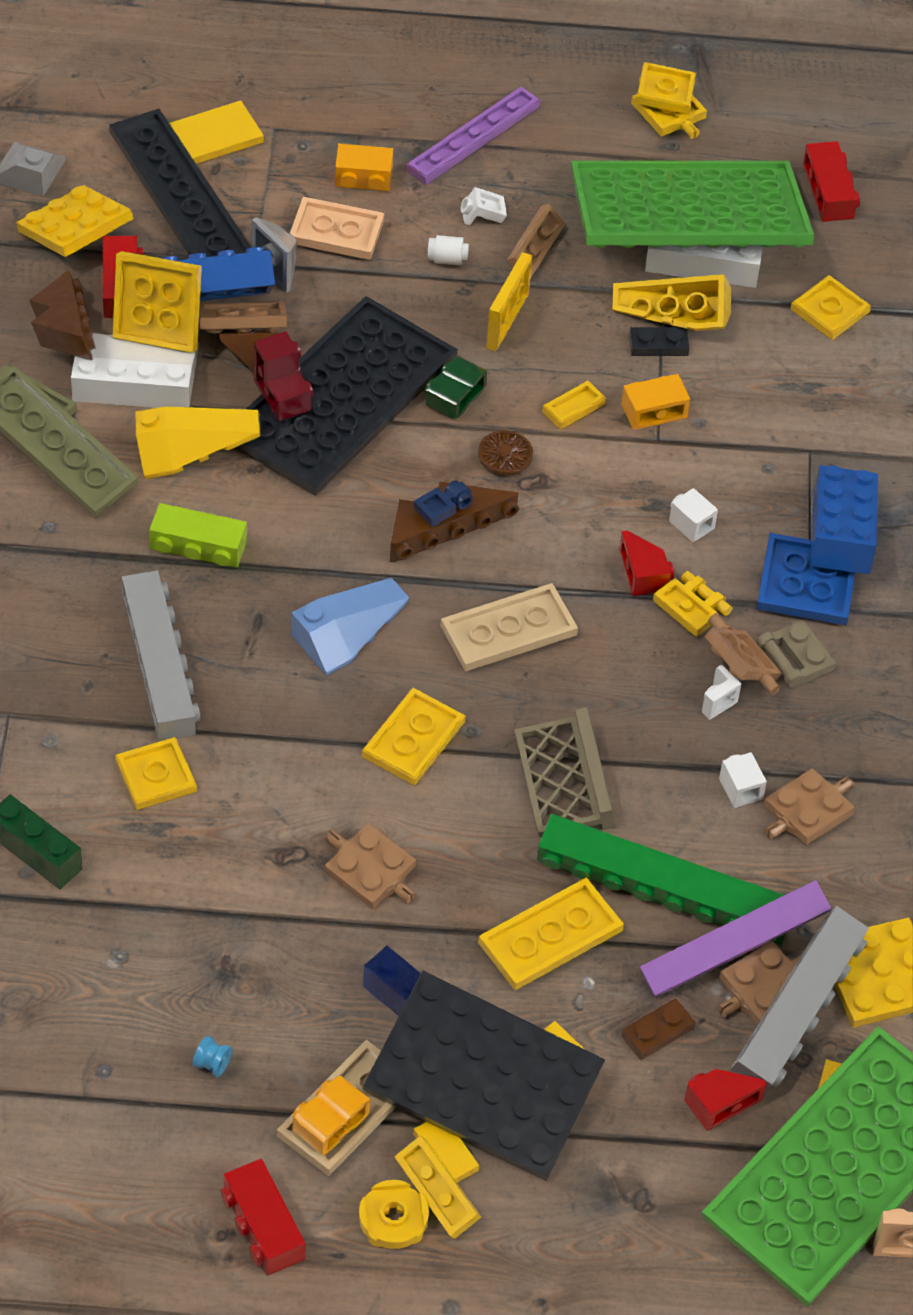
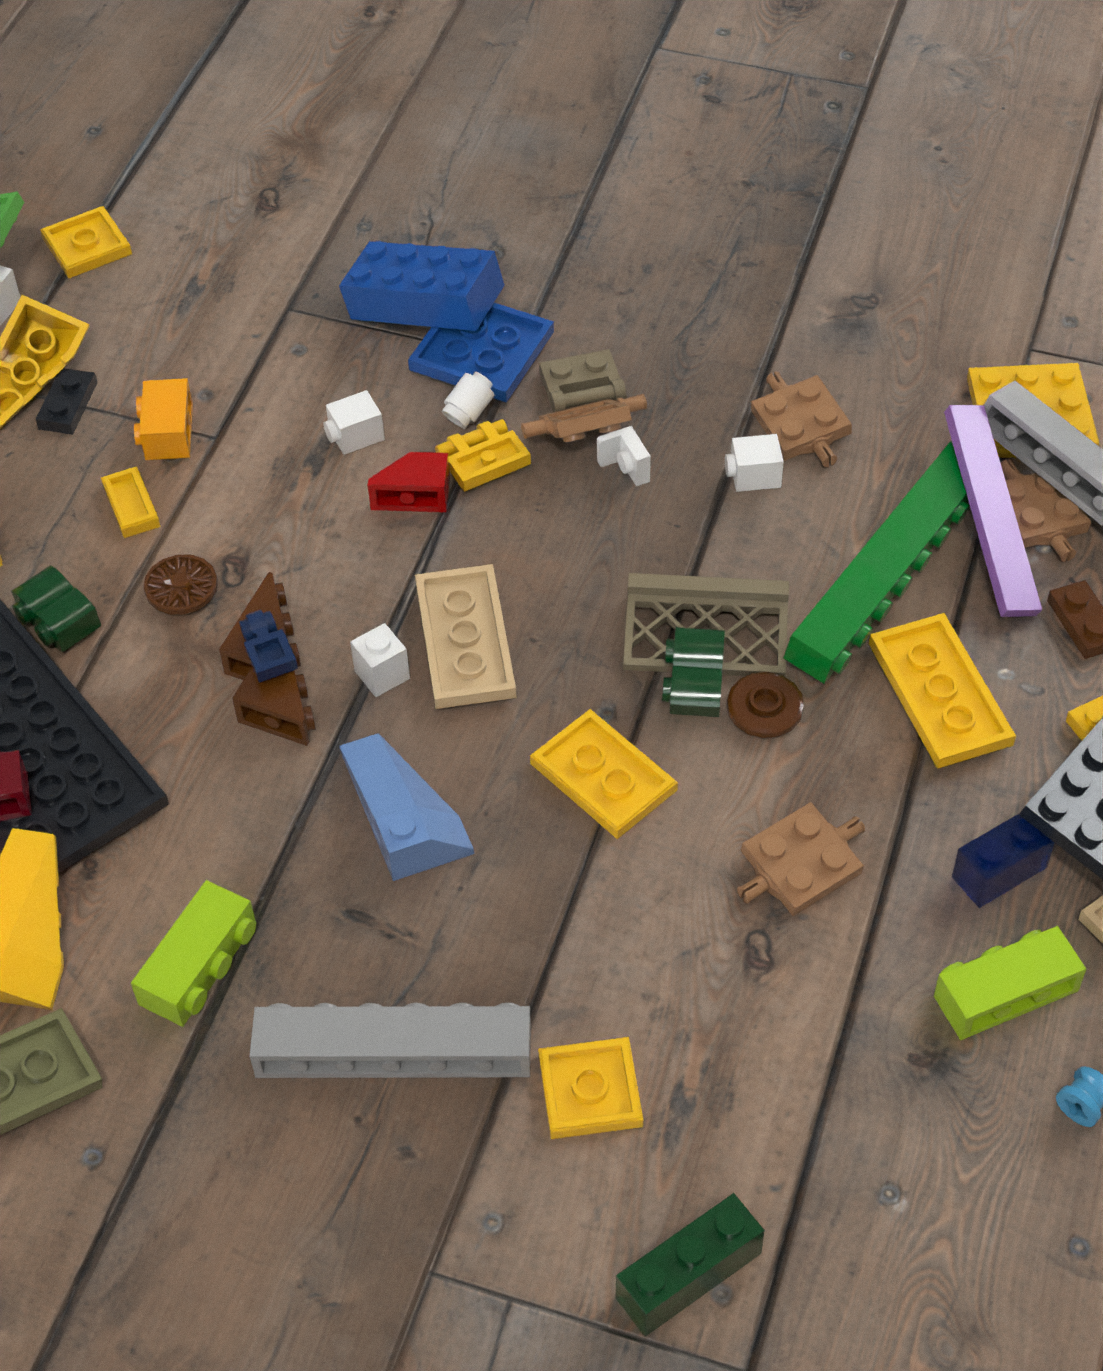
camera: 70 degrees left, 0 degrees up
(294, 1001) = (1008, 981): none -> lime brick
(466, 579) = (380, 660): none -> white brick
(504, 824) = (765, 704): none -> reddish brown wheel
(513, 770) = (695, 672): none -> dark green brick
(739, 579) = (468, 399): none -> white brick

